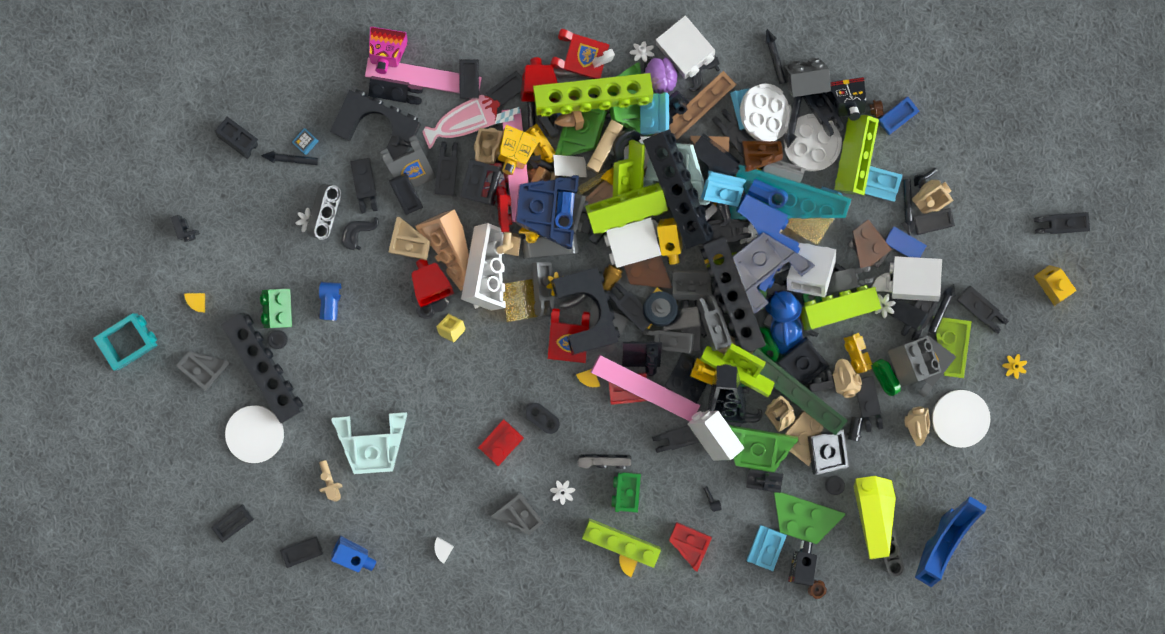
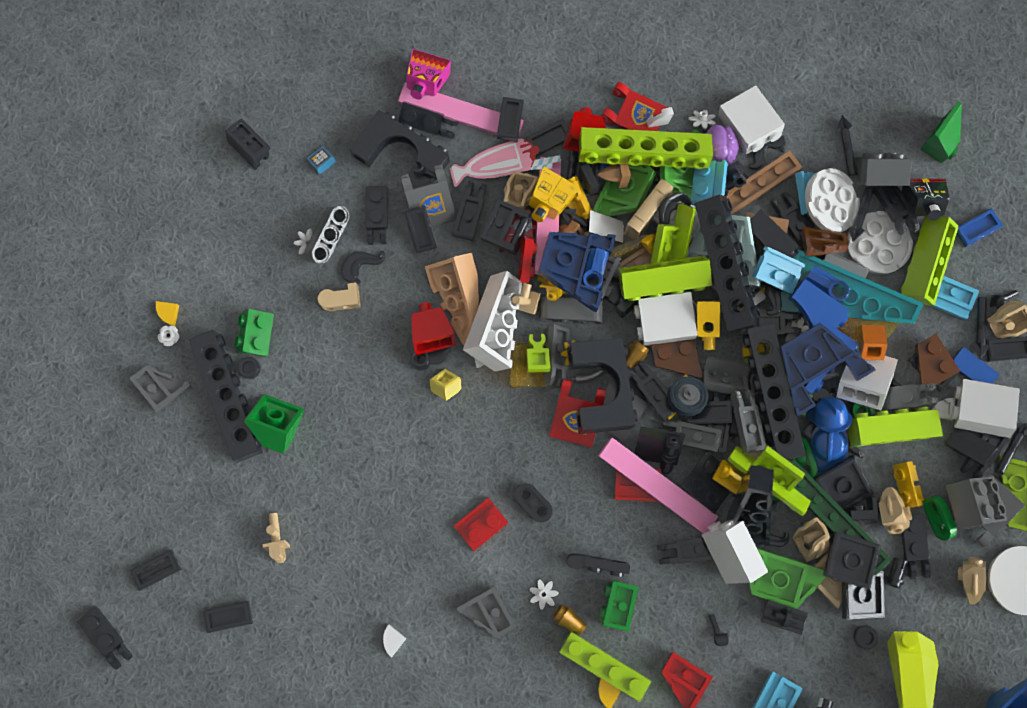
camera: 15 degrees right, 10 degrees down
(108, 349) = (60, 353): teal window -> none
(180, 226) = (167, 228): black bracket -> none
(200, 584) = (104, 636): none -> black hinge
(206, 322) = (168, 341): none -> white plate
(254, 434) = (201, 470): white tile -> none
(273, 156) = (282, 170): black piece -> none
(309, 384) = (274, 422): none -> green slope
(329, 300) = (315, 331): blue piece -> none
(345, 268) = (341, 299): none -> tan leg
(346, 550) = (278, 623): blue torso -> none
(371, 452) = (331, 511): light aqua wing -> none
(408, 241) = (414, 281): tan wing -> none
(526, 294) = (537, 357): none -> lime plate
(587, 510) = (568, 619): none -> pearl gold cone
(588, 378) = (593, 465): yellow tile -> none
(804, 518) = (825, 671): bright green wing -> none
(812, 238) = (872, 342): none -> orange brick
(814, 426) = (851, 560): none -> black plate
(860, 37) = (945, 136): none -> green slope
(876, 108) = (956, 214): reddish brown plate -> none
(885, 305) = (948, 437): white plant -> none

